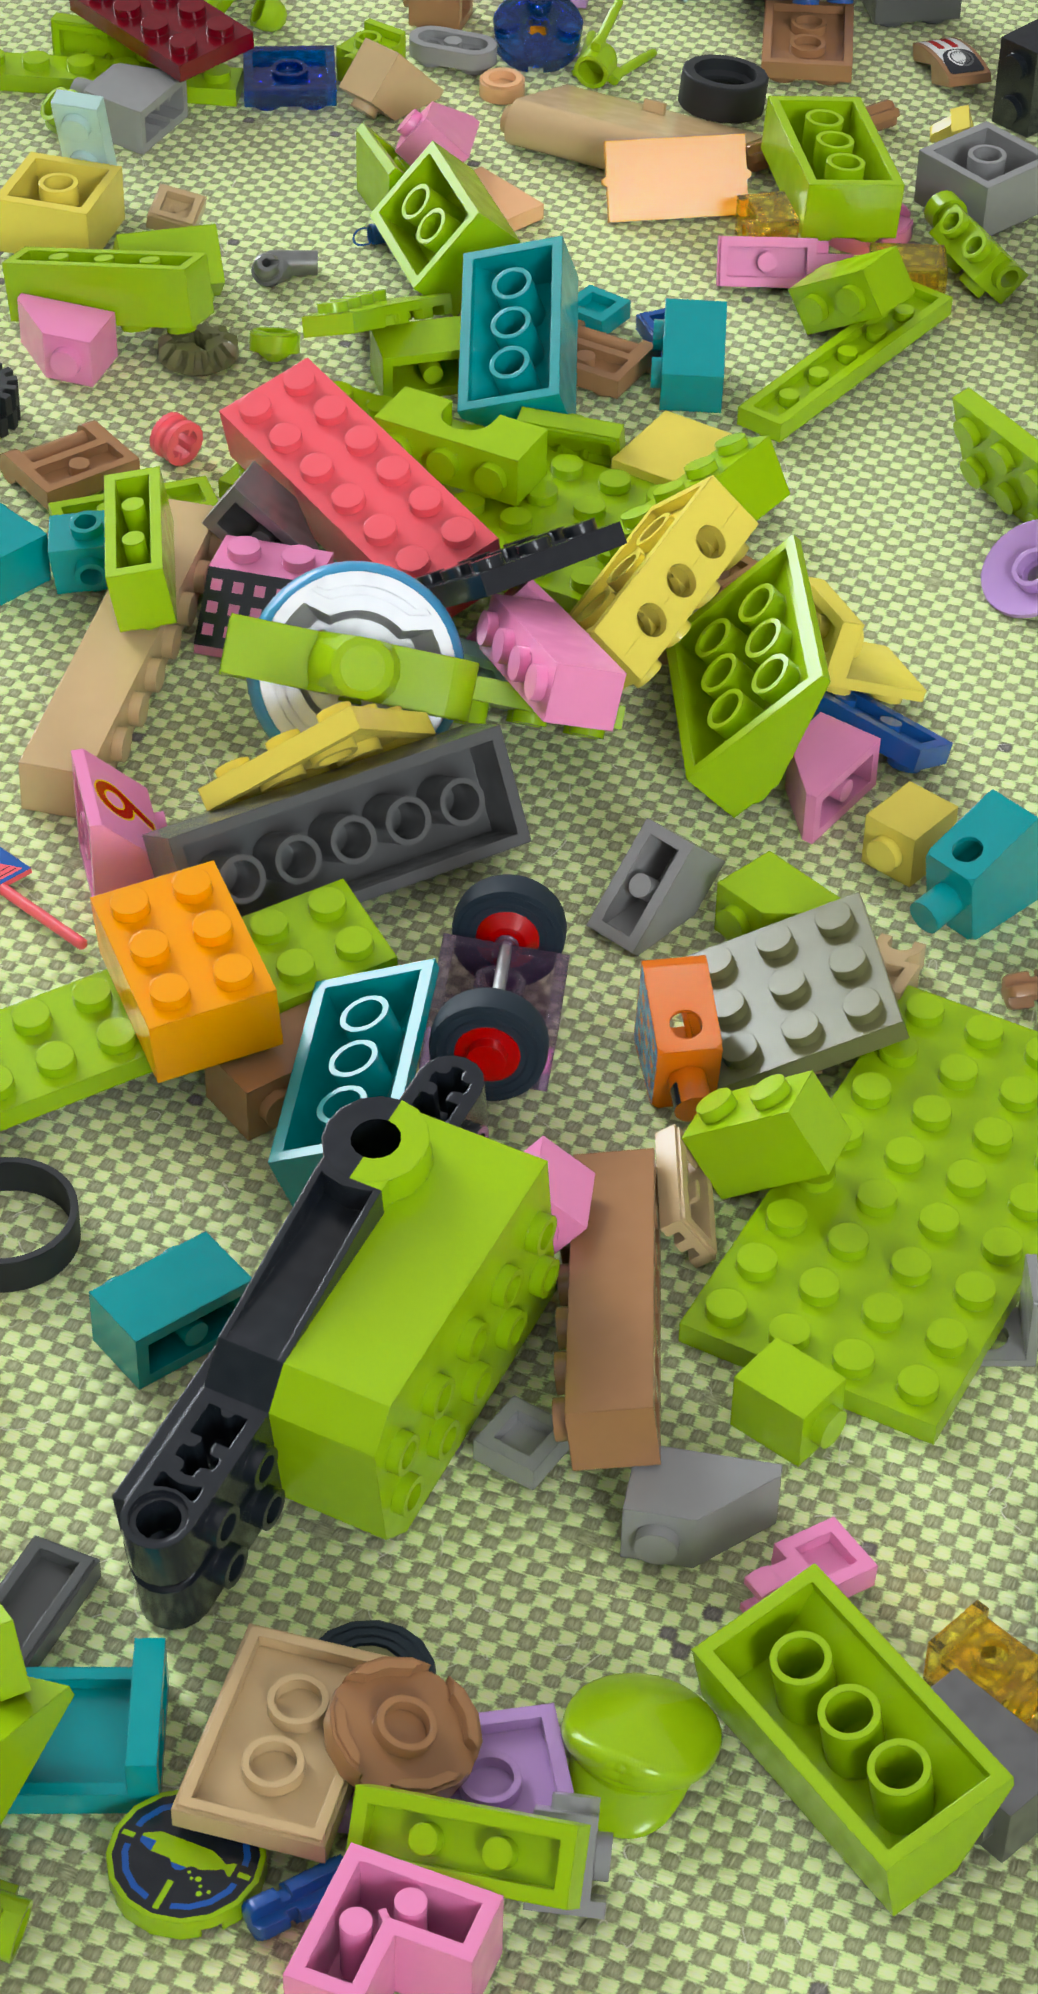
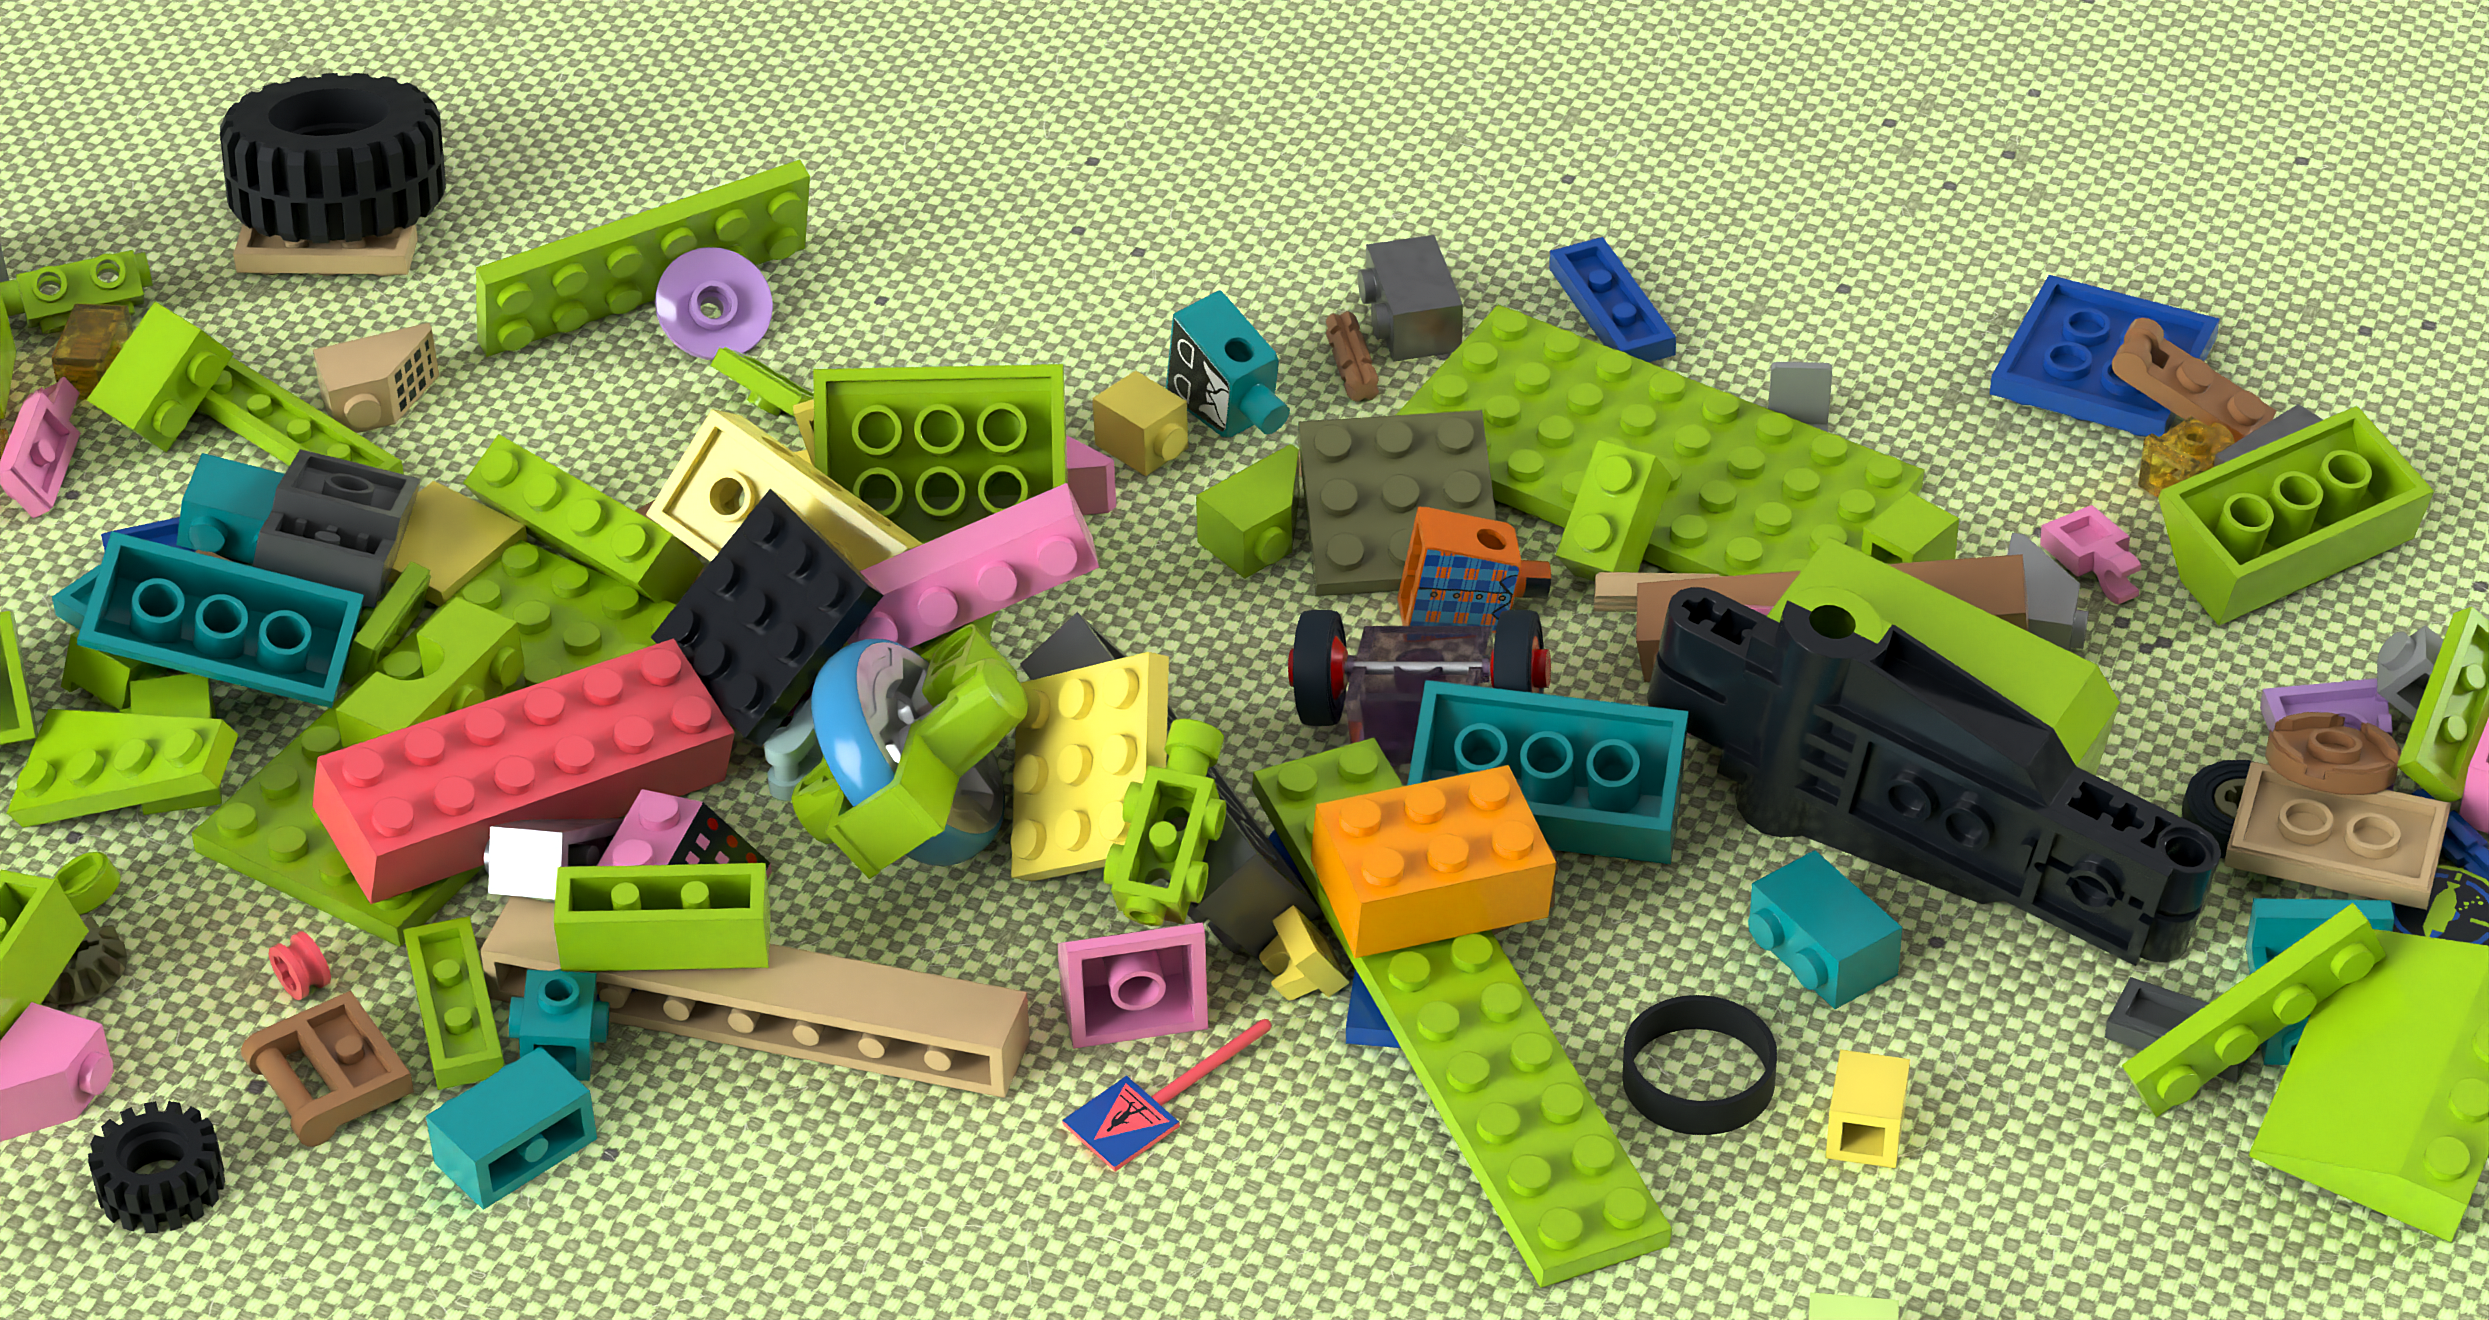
camera: 85 degrees left, 0 degrees up
(188, 778) = (1153, 844): none -> lime brick
(638, 1748) = (2283, 647): lime piece -> none
(653, 376) = (337, 524): none -> dark grey slope
(654, 888) = (1217, 592): light grey slope -> none
(893, 405) = (377, 376): none -> tan slope
(923, 613) = (767, 386): none -> lime plate

